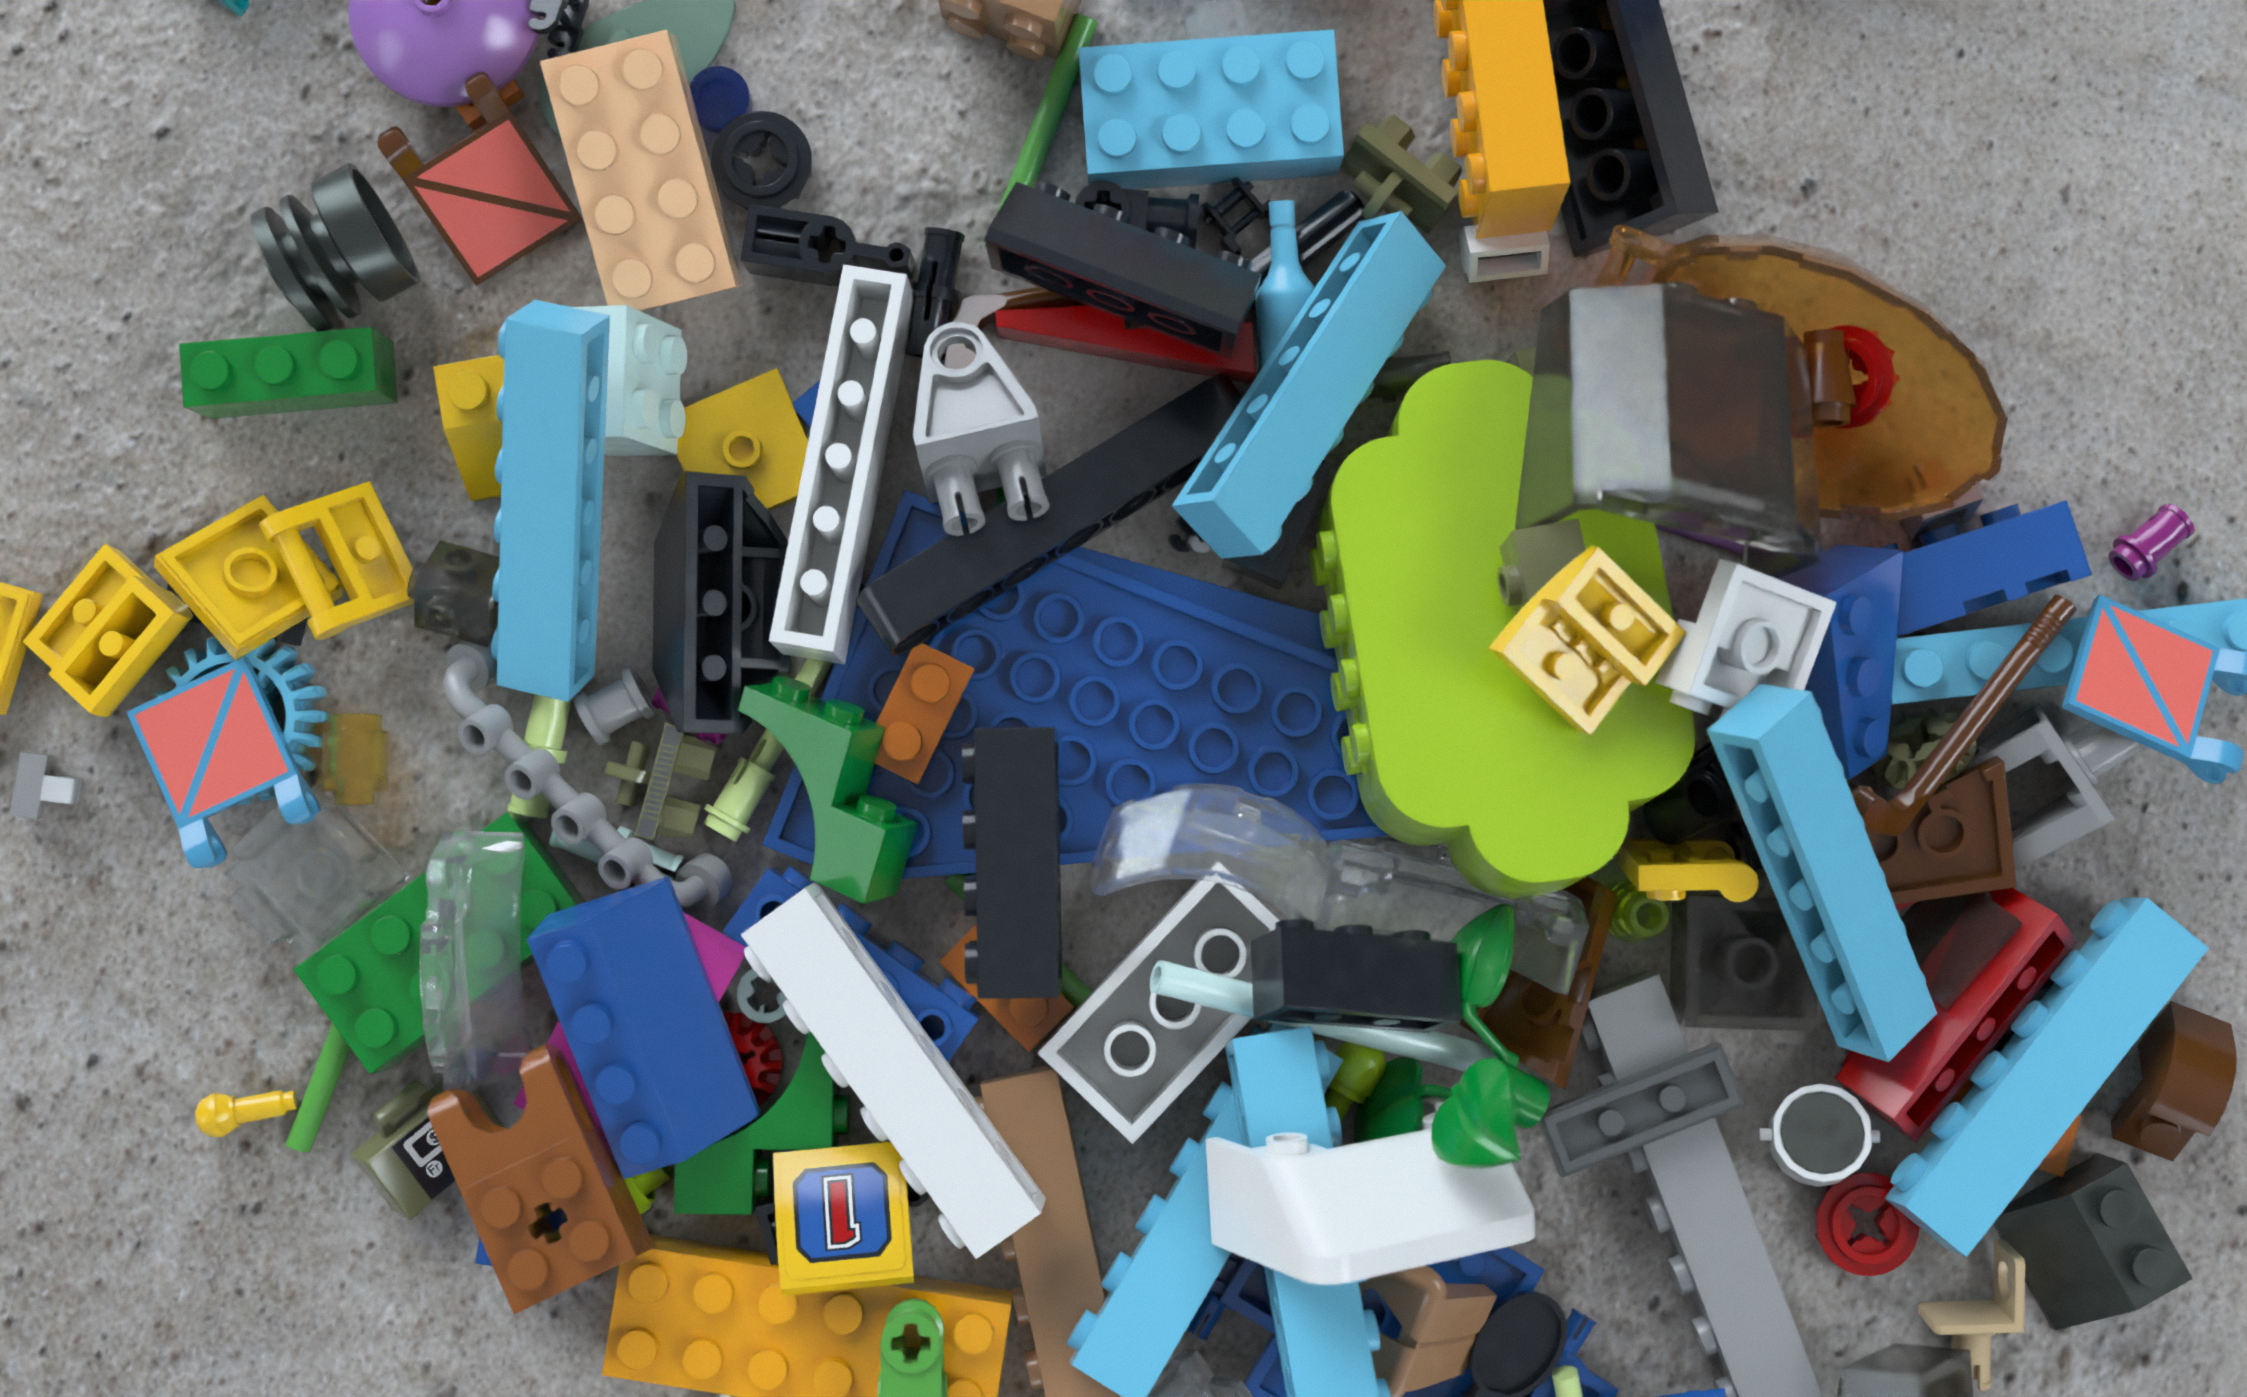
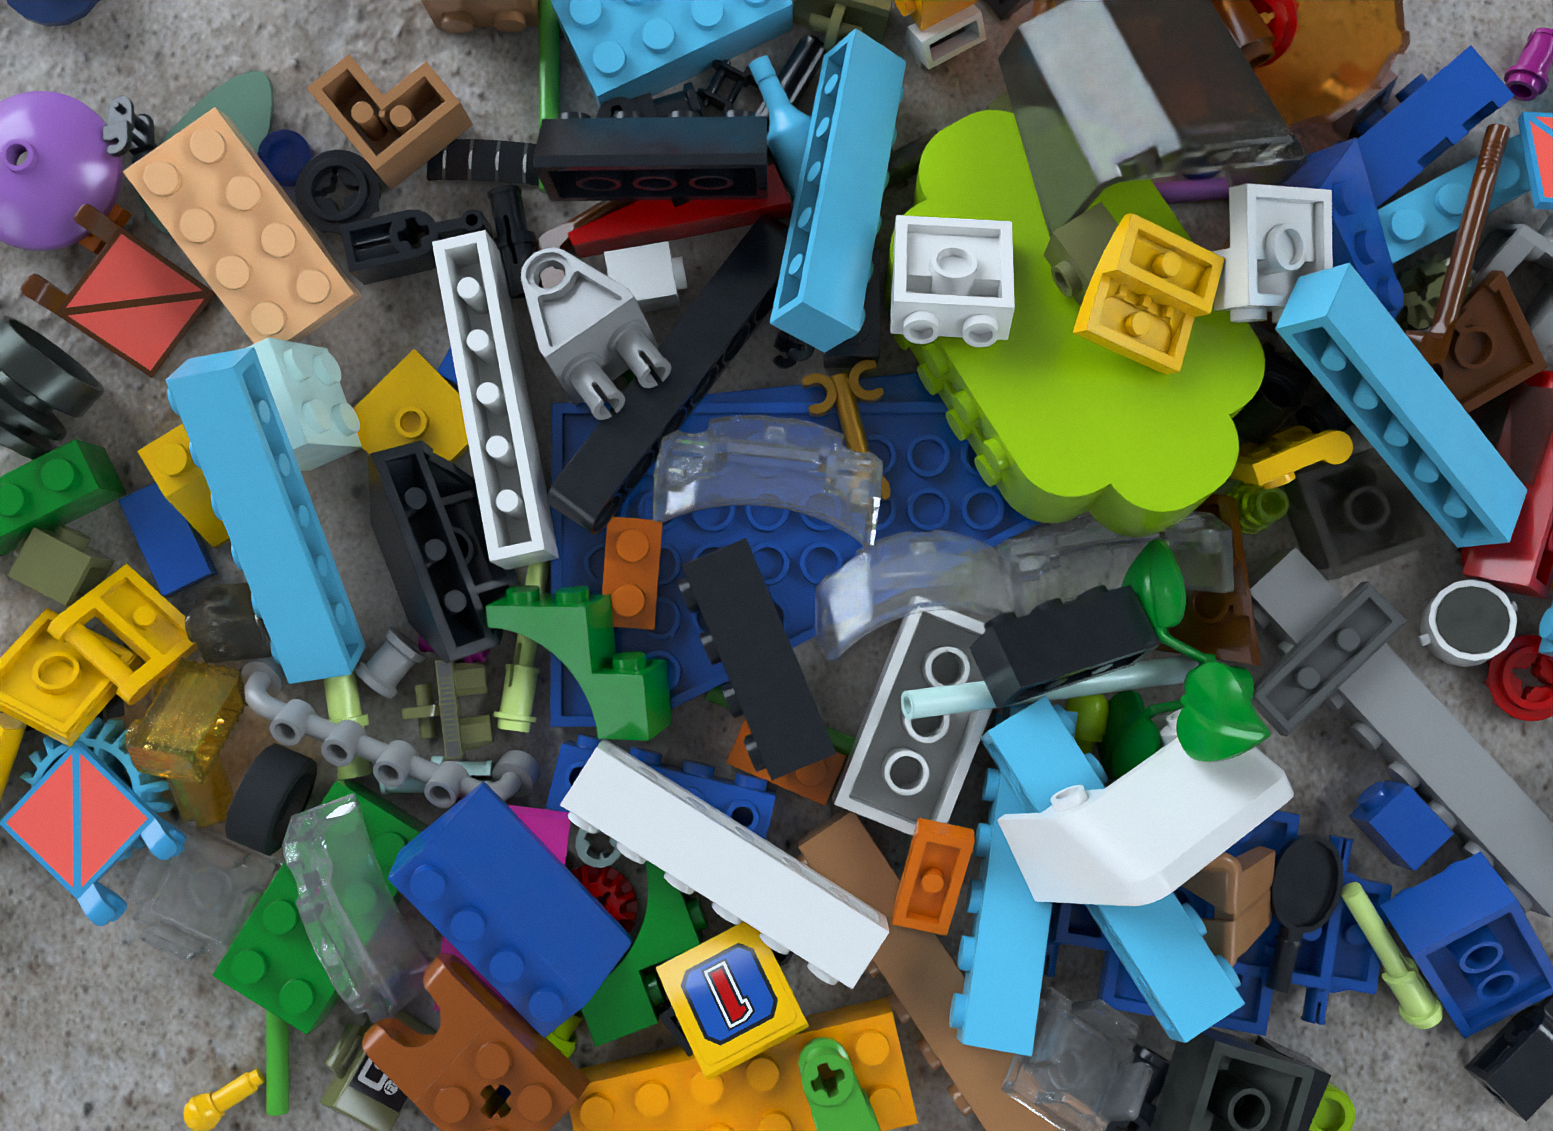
camera: 25 degrees left, 0 degrees up
(297, 454) = (59, 564): none -> olive brick
(371, 682) = (187, 721): none -> clear yellow brick
(423, 472) = (167, 541): none -> blue tile
(428, 802) = (268, 796): none -> black tyre
(850, 121) = (392, 129): none -> medium nougat brick
(935, 188) = (484, 162): none -> black sticker
(1065, 390) = (648, 274): none -> white brick
(1112, 1174) = (933, 876): none -> orange plate
(1116, 653) = (771, 465): none -> clear windscreen
(1230, 604) = (844, 392): none -> pearl gold bar
(1386, 537) = (952, 279): none -> white plate
(1654, 1325) = (1400, 823): none -> blue brick

